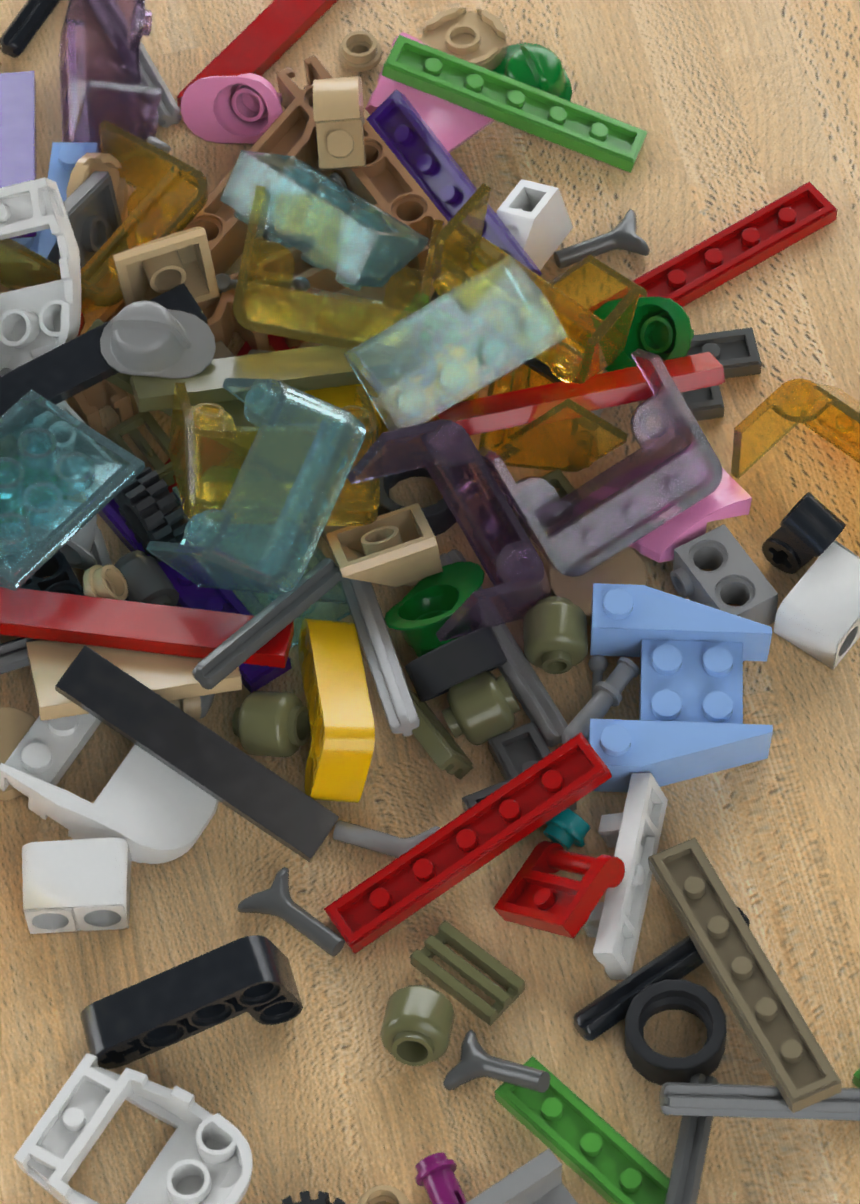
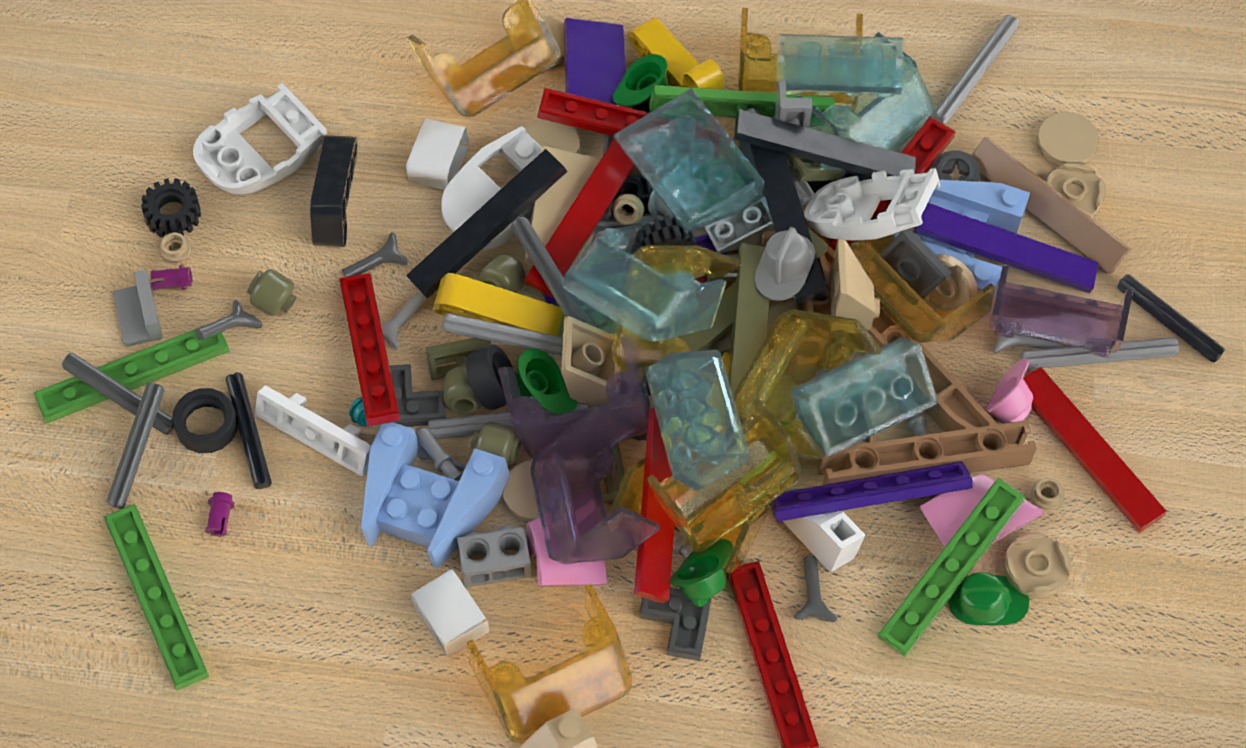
camera: 105 degrees right, 5 degrees up
(339, 122) = (955, 425): tan brick -> none
(436, 946) = (294, 329): olive tile -> none
(554, 901) = (315, 376): red plate -> none
(745, 976) = (216, 459): dark tan tile -> none
(802, 535) = (505, 612): black piece -> none
(816, 953) = (220, 504): none -> magenta pin

